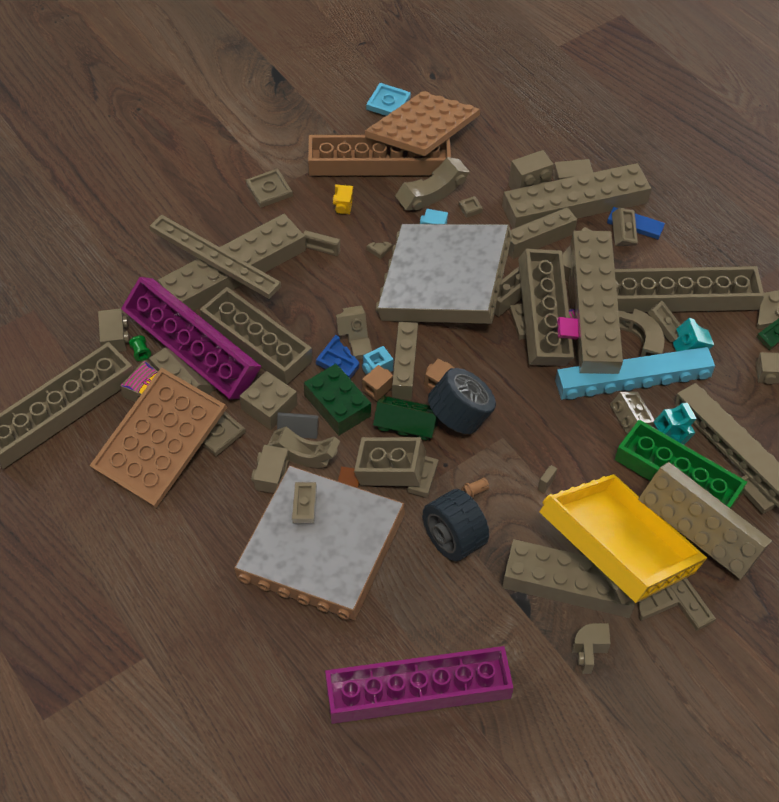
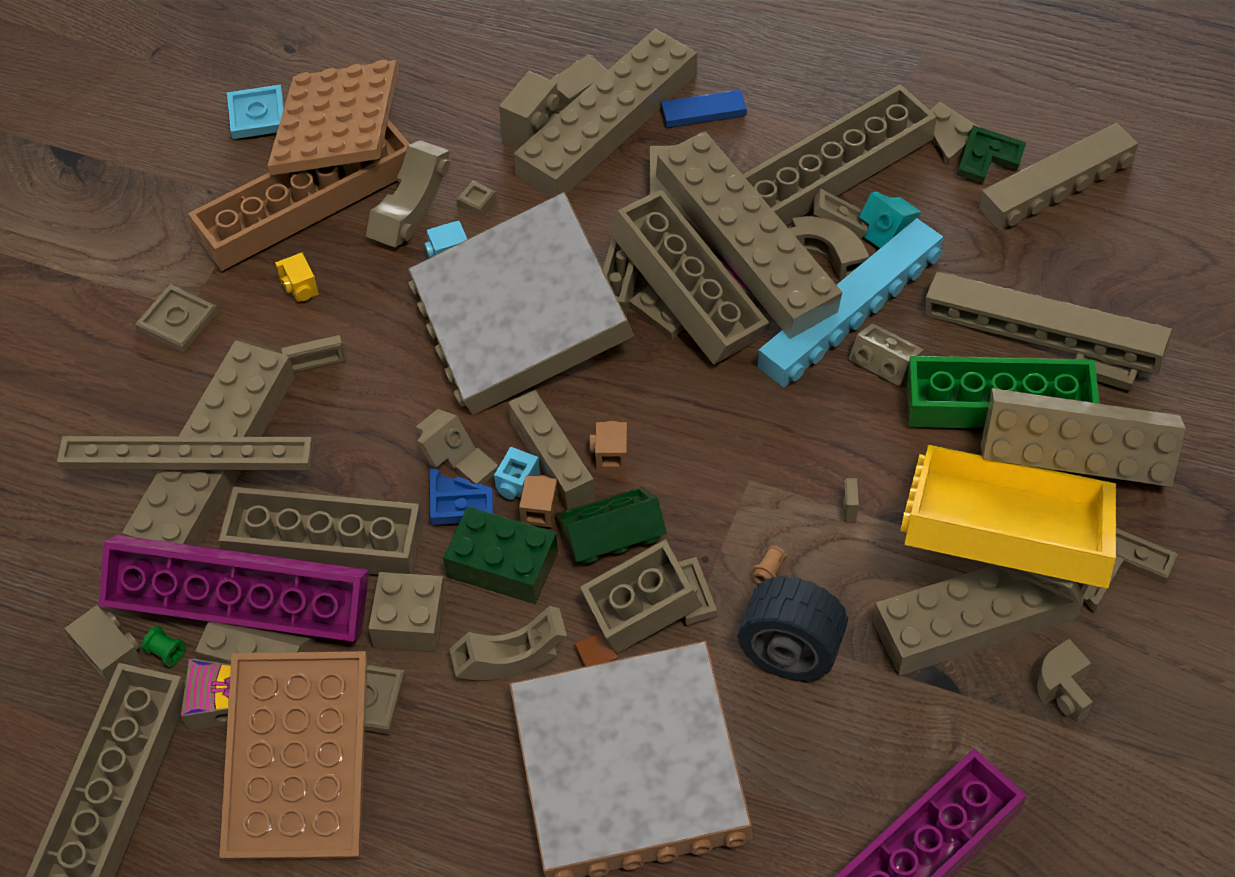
camera: 30 degrees left, 0 degrees up
(271, 468) = (486, 704): dark tan brick -> none
(301, 424) = (480, 617): dark grey slope -> none
(304, 502) = (575, 721): dark tan plate -> none
(379, 249) = (396, 320): dark tan tile -> none
(461, 401) = (675, 460): black wheel -> none
(542, 232) = (601, 178): dark tan brick -> none
(568, 328) = (738, 287): dark pink tile -> none
(624, 227) = (694, 117): dark tan slope -> none
(677, 423) = (953, 334): teal brick -> none

